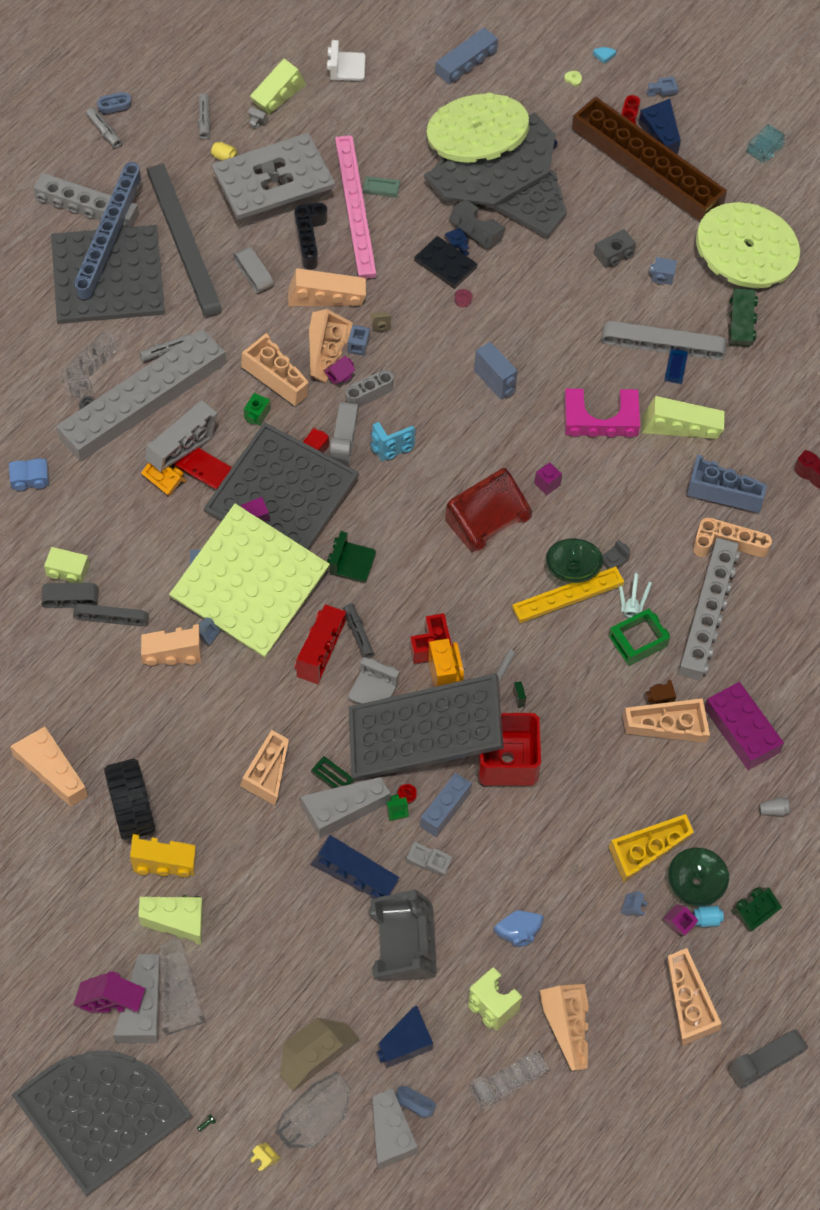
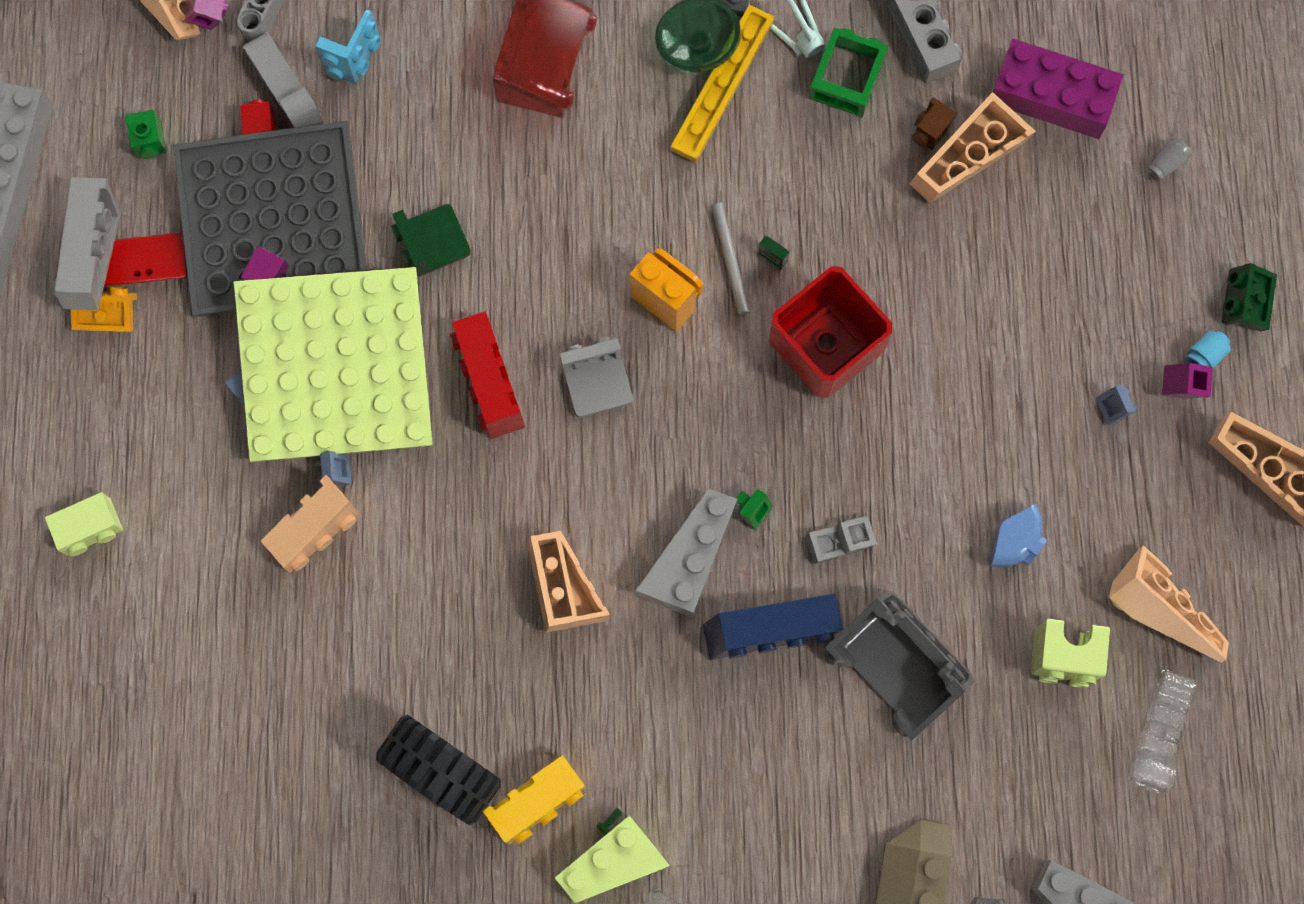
camera: 35 degrees left, 15 degrees up
(47, 762) = (285, 797): light nougat wedge -> none
(68, 594) = (121, 560): dark grey beam -> none
(110, 615) = (196, 544): dark grey beam -> none
(275, 370) = (125, 66): light nougat wedge -> none
(335, 768) = (645, 540): dark green tile -> none
(355, 623) = (507, 317): dark grey pin -> none
(405, 1040) = (1007, 784): dark blue slope -> none
(407, 791) = (751, 474): red plate -> none
(415, 1101) = (1081, 847): sand blue plate -> none
(425, 727) = (714, 384): dark grey plate -> none
(436, 629) = (619, 257): red brick -> none
(445, 805) = (808, 458): sand blue brick -> none
(644, 847) = (1075, 325): yellow wedge -> none
(698, 865) = (1175, 301): clear green dish -> none

